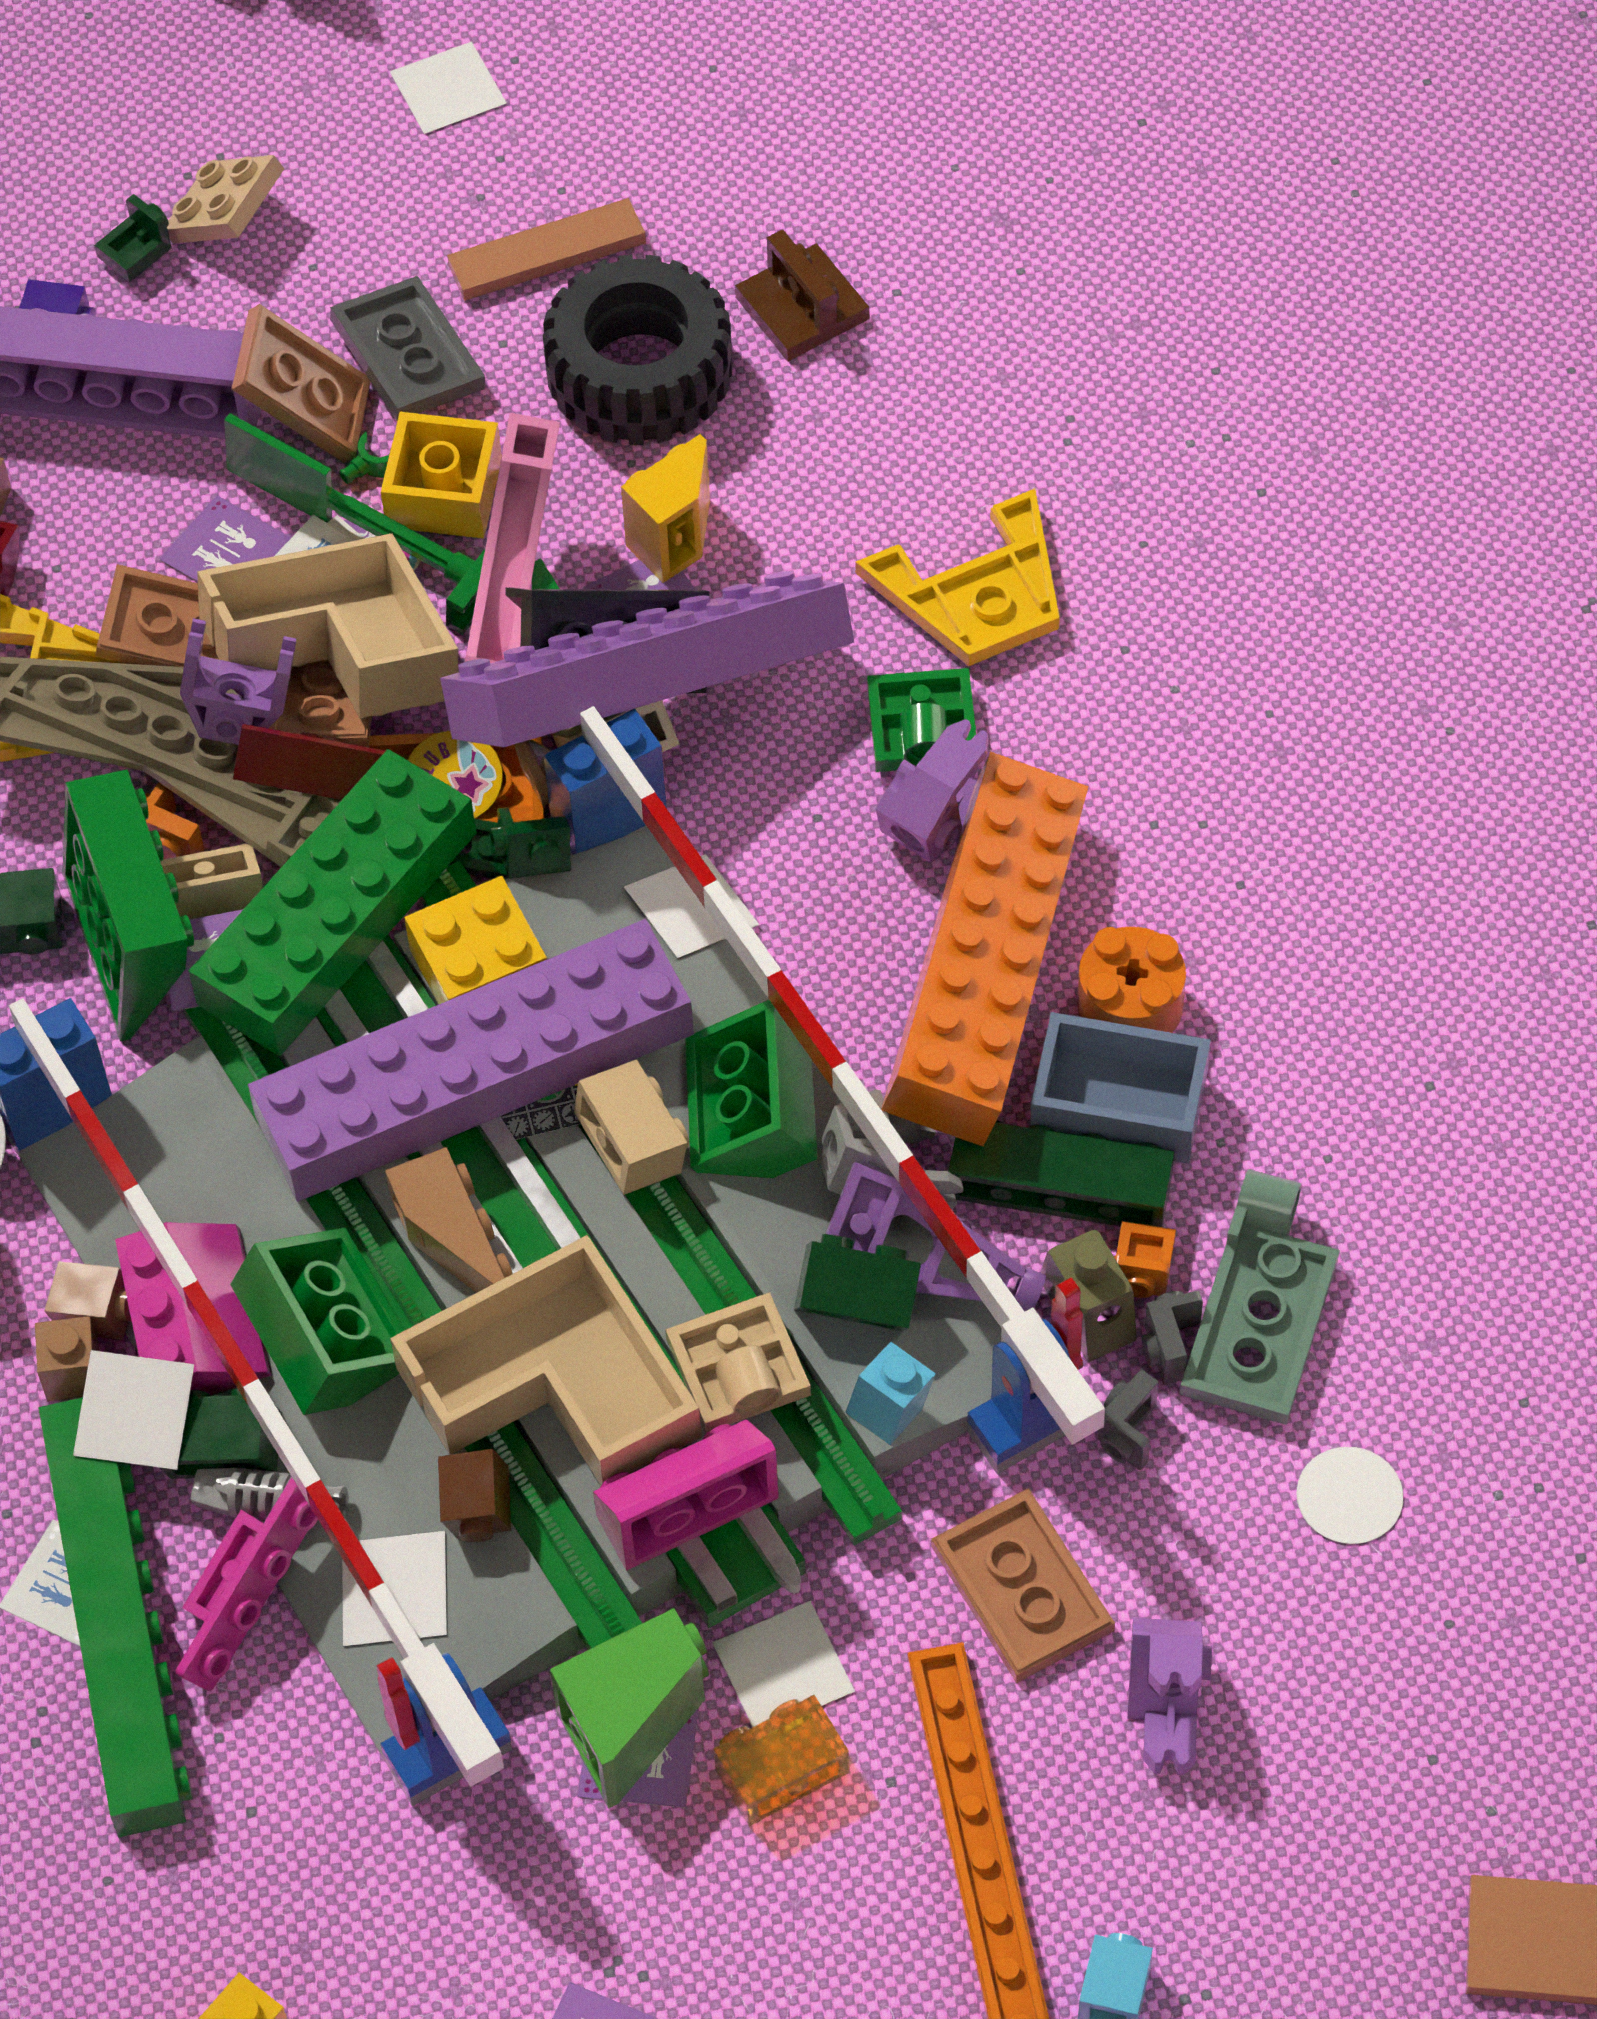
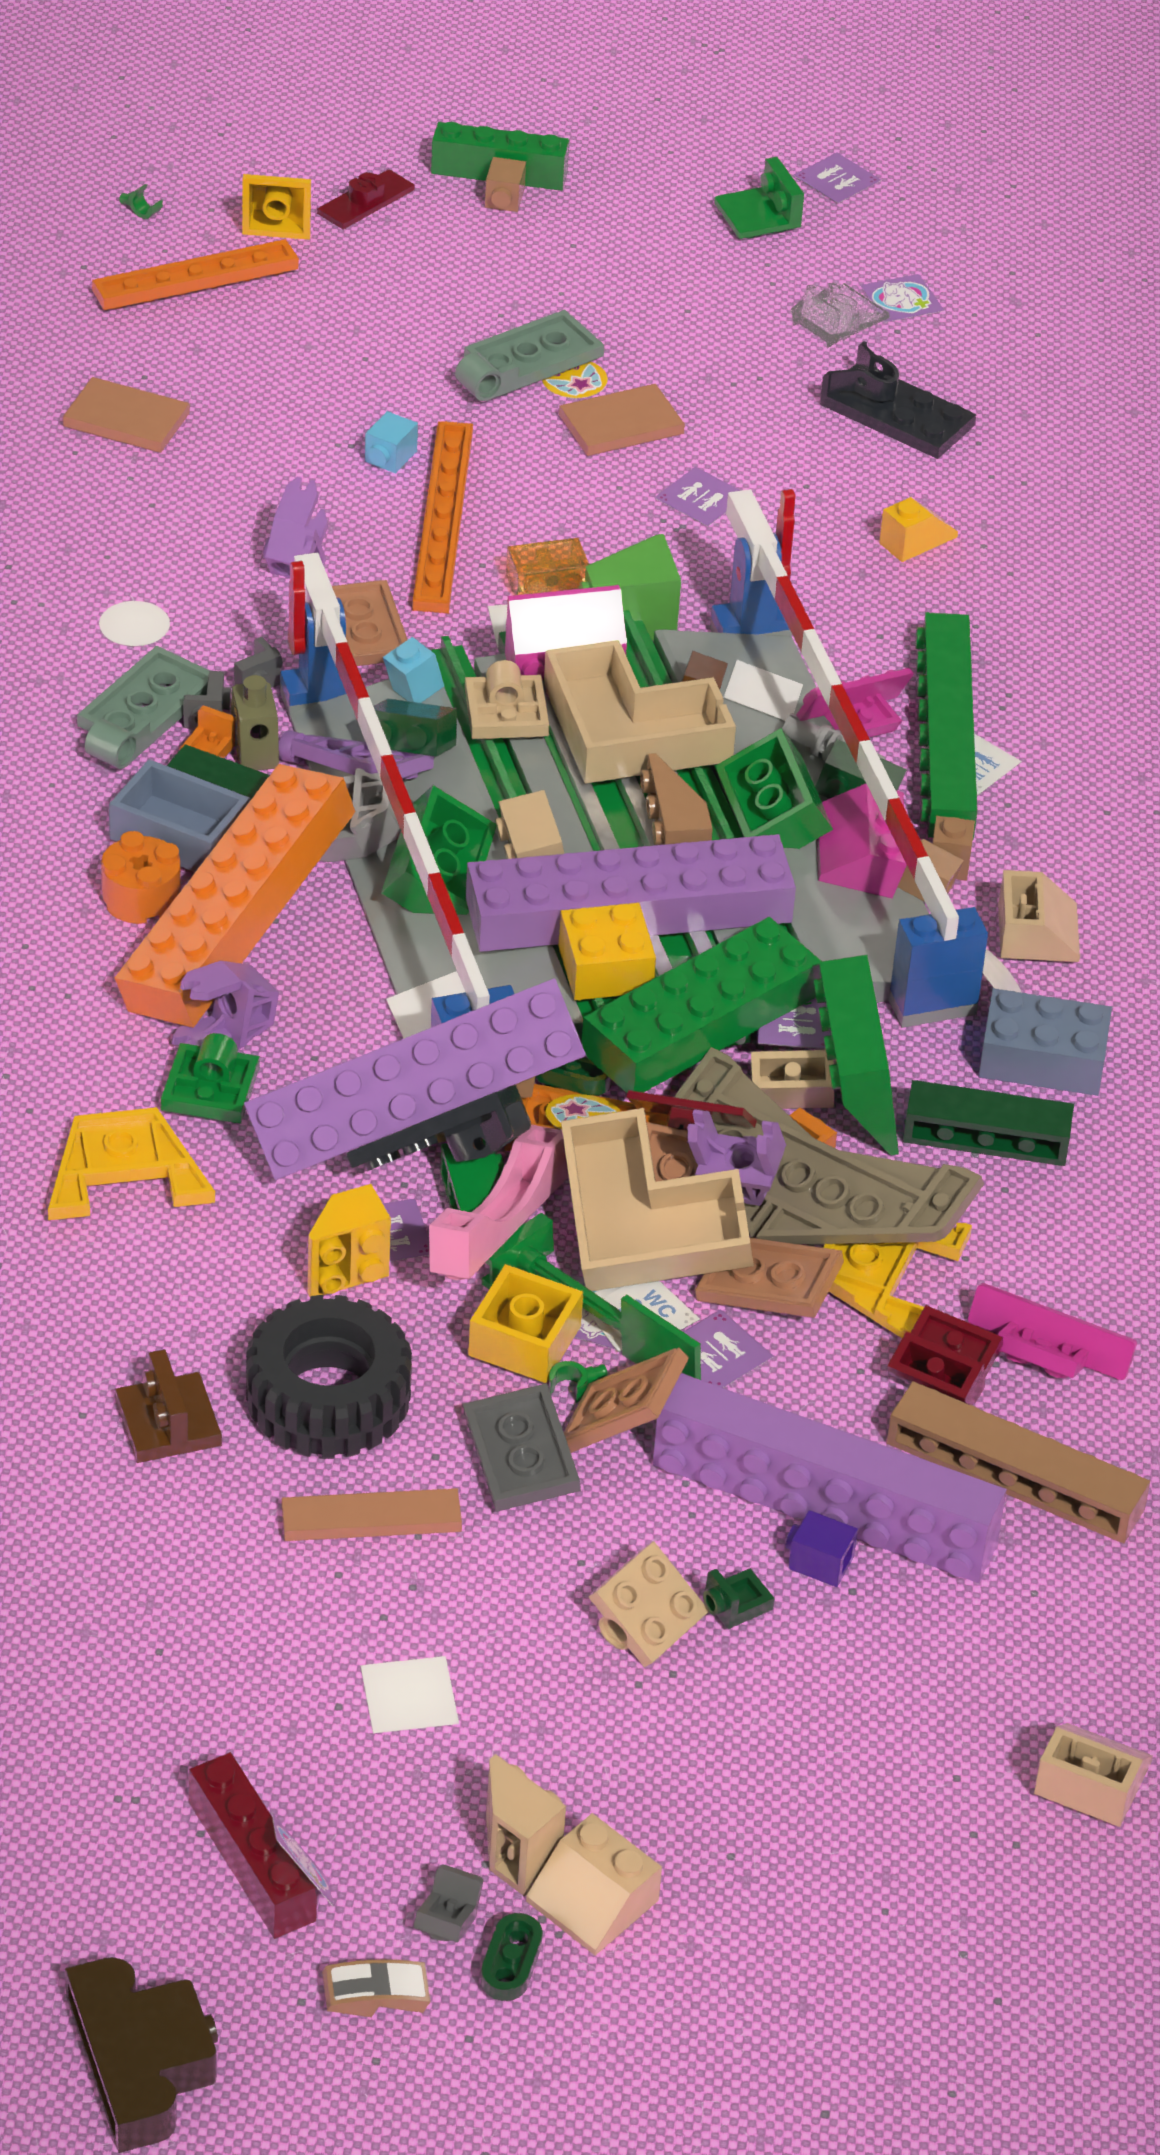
camera: 170 degrees left, 15 degrees down
(133, 1410) = (918, 780): white sticker -> none

